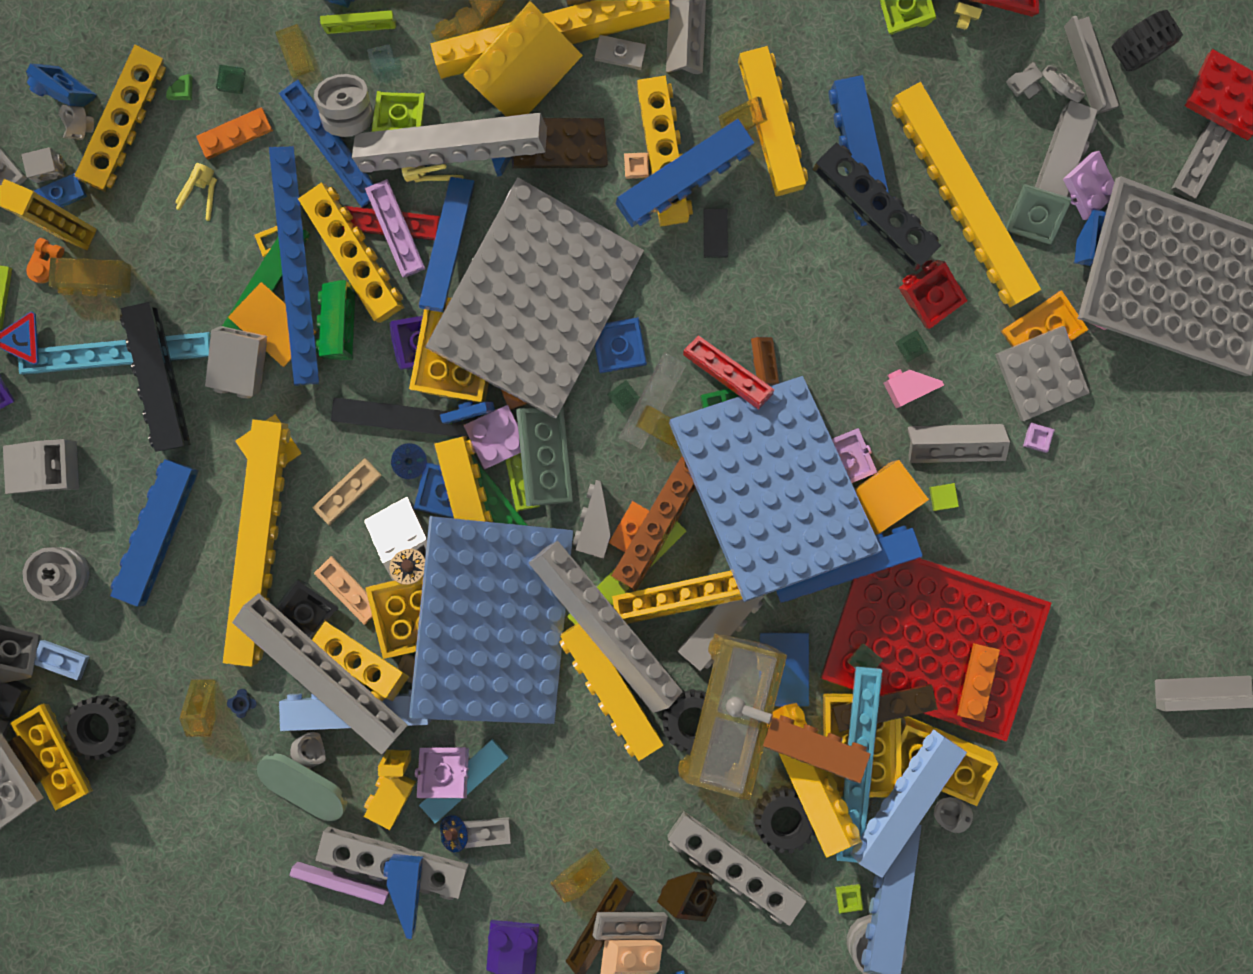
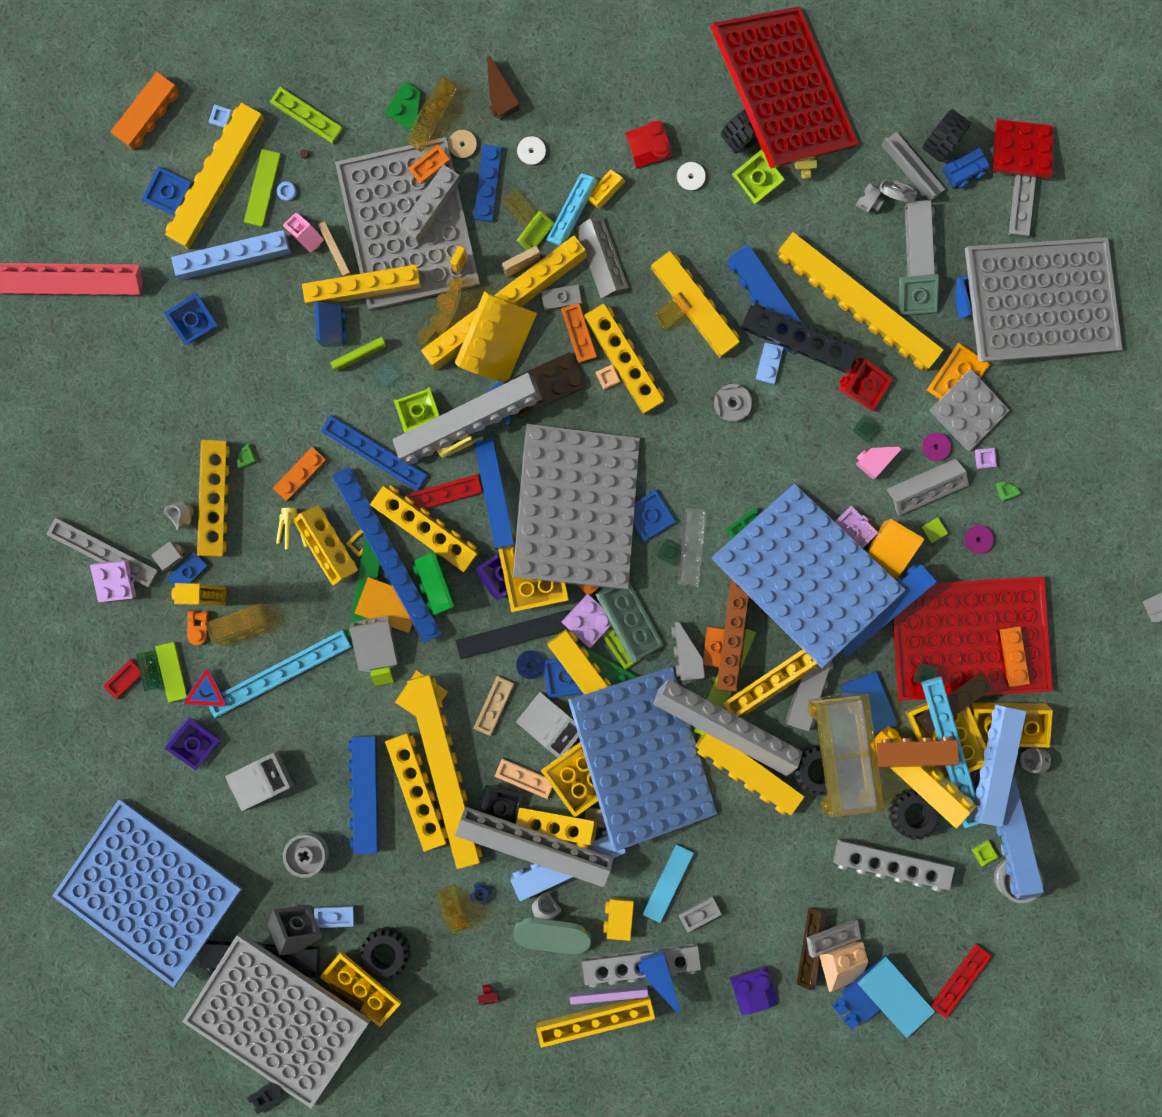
camera: 25 degrees left, 0 degrees up
(58, 84) = (158, 492): blue slope -> none
(155, 376) = (319, 679): black brick -> none
(199, 826) = (488, 997): none -> dark red tile
(206, 565) = (428, 839): none -> yellow brick
(222, 236) = (317, 539): none -> yellow brick
(230, 79) = (280, 435): clear green plate -> none
(231, 404) = (382, 676): none -> lime tile
(295, 51) = (319, 394): clear yellow tile -> none
(309, 907) = (594, 1021): none -> yellow brick
(344, 105) = (376, 421): light grey wheel -> none
(394, 763) = (614, 891): yellow plate -> none
(395, 228) = (449, 497): lavender tile -> none
(407, 566) = (565, 742): piece -> none
(442, 772) = (651, 883): lavender plate -> none
(453, 833) = (676, 924): piece -> none
(467, 411) = (560, 610): blue plate -> none
(580, 876) = (782, 917): clear yellow slope -> none
(623, 100) = (578, 333): none -> orange plate
(657, 425) = (703, 564): clear yellow tile -> none
(685, 173) = (648, 371): blue brick -> none
(689, 896) = (867, 899): dark brown slope -> none
(715, 233) = (686, 403): black tile -> none
(728, 372) = (739, 503): tile -> none
(736, 707) = (847, 746): light grey bar -> none
(765, 360) = (762, 484): dark orange plate -> none
(769, 241) = (740, 396): none -> light grey plate
(830, 225) = (769, 363): none -> light blue plate
(994, 399) = (942, 443): none -> magenta piece
(1000, 527) = (983, 534): none -> magenta piece
(1048, 485) = (1006, 490): none -> bright green tile
(1090, 184) = (947, 257): lavender plate -> none
(1153, 90) = (965, 168): none -> blue brick

